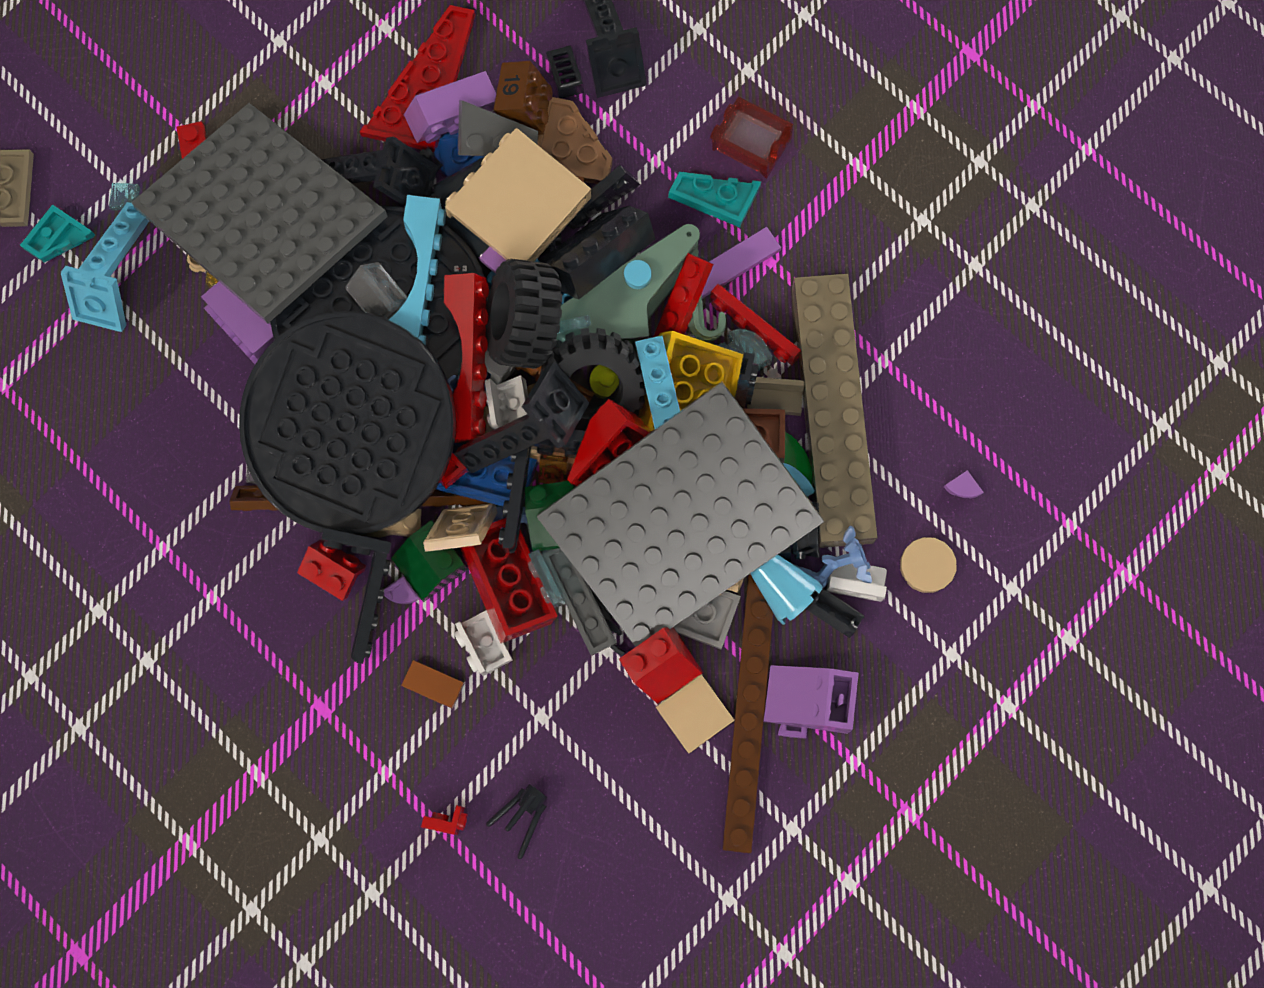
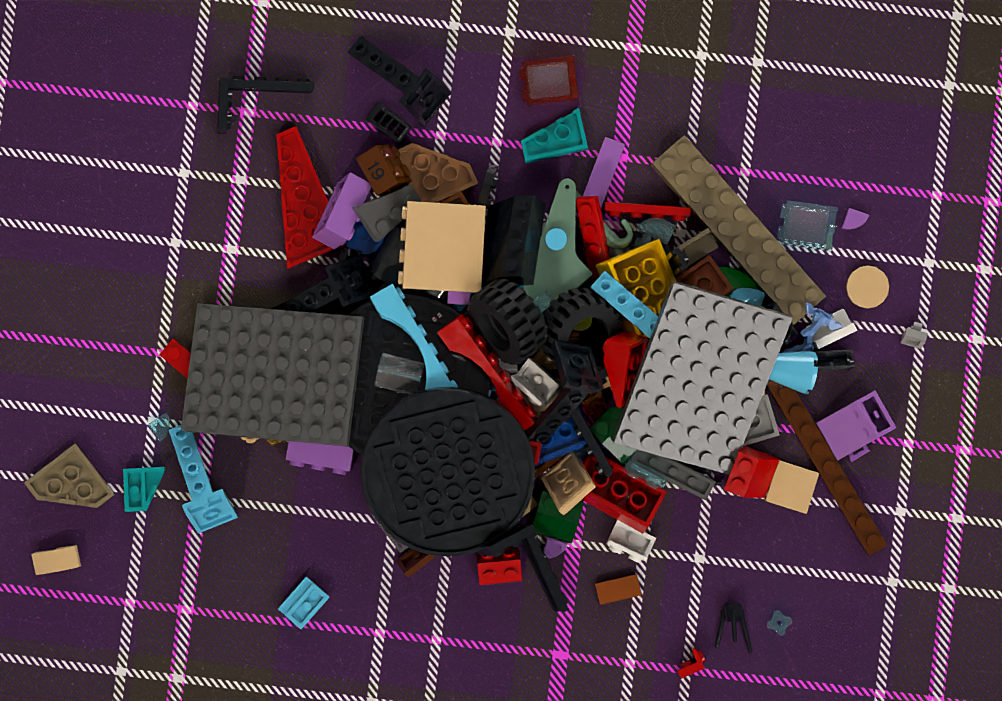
camera: 45 degrees left, 10 degrees up
(112, 460) = (303, 602): none -> medium azure plate
(568, 856) = (785, 621): none -> clear light blue plate
(910, 456) = (807, 225): none -> window
(942, 651) = (914, 336): none -> light grey tile

